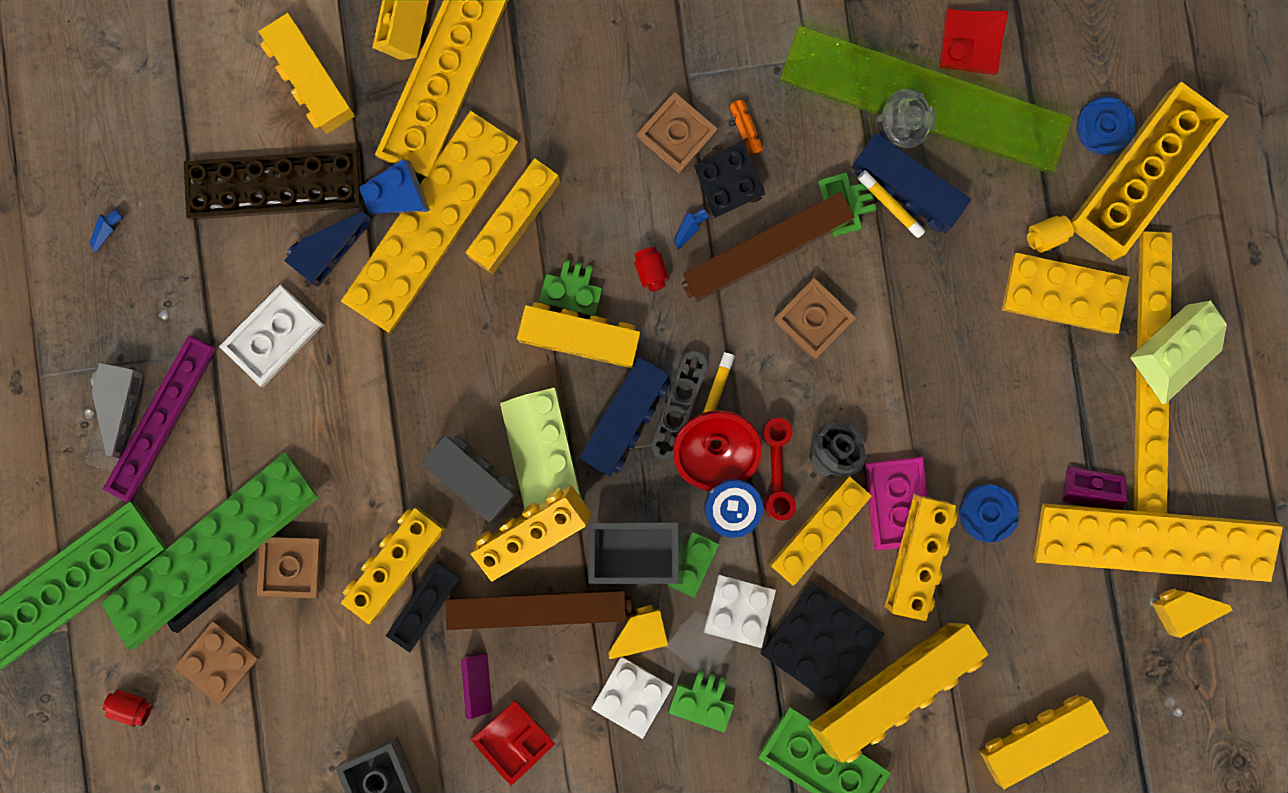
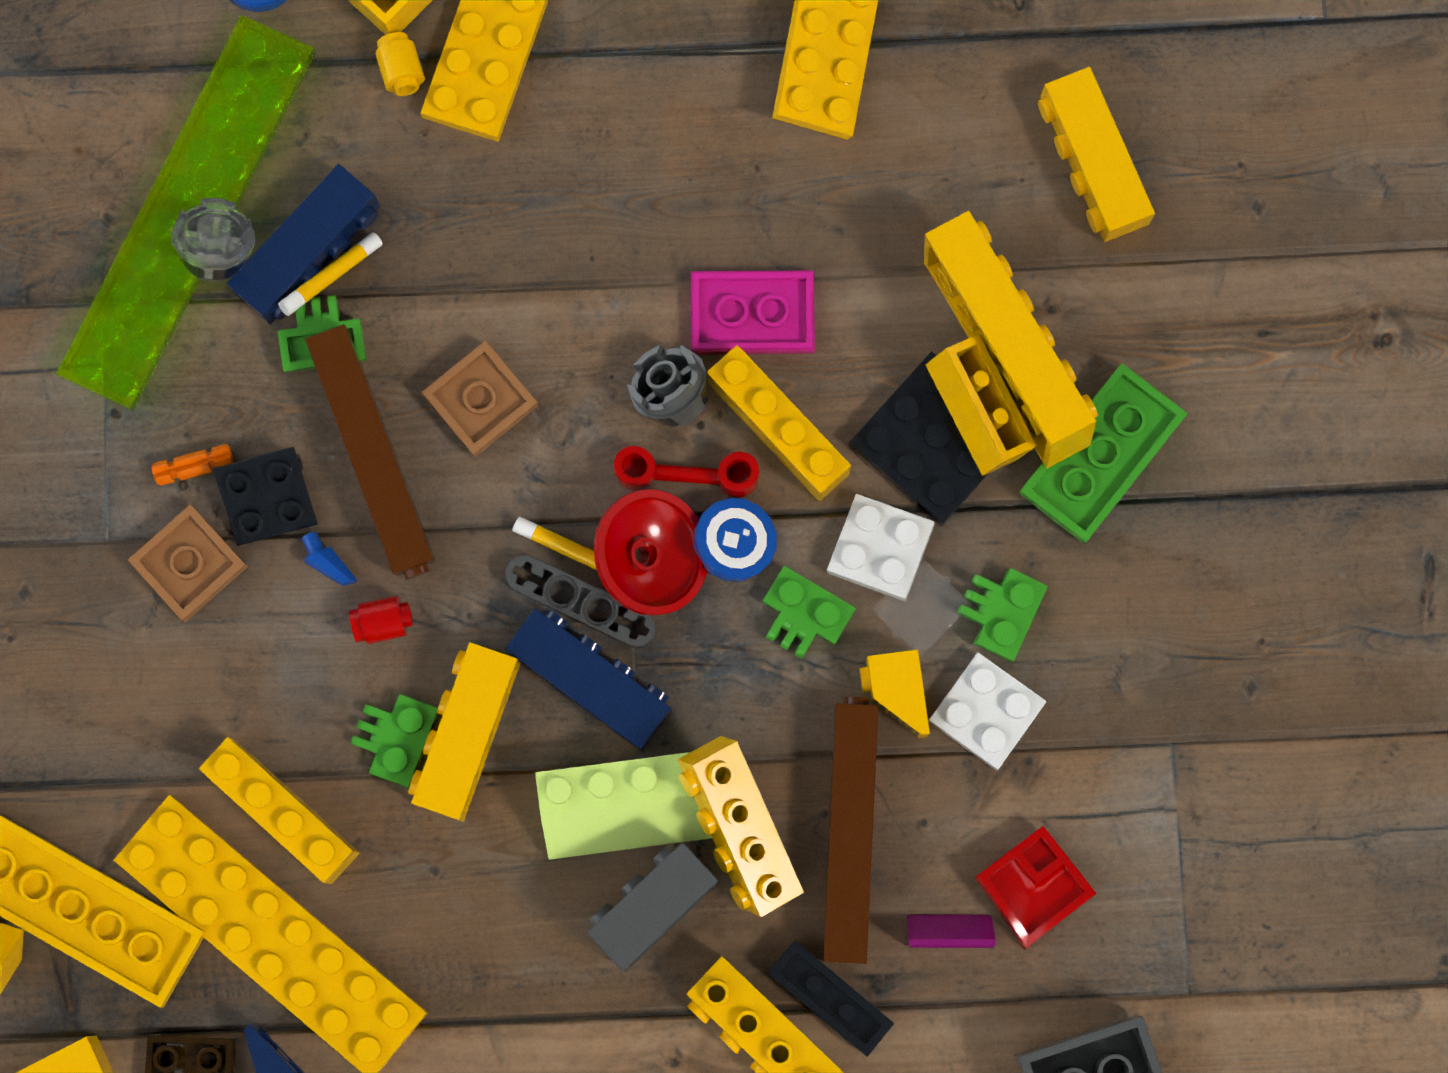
camera: 80 degrees left, 5 degrees down
(394, 191) = (219, 982): blue wing -> none
(636, 553) = (783, 681): dark grey piece -> none
(847, 675) = (980, 404): none -> yellow brick
(921, 557) = (829, 289): yellow brick -> none
(972, 40) = (111, 136): red plate -> none
(989, 513) = (779, 191): blue tile -> none
(1094, 488) = (760, 47): magenta slope -> none

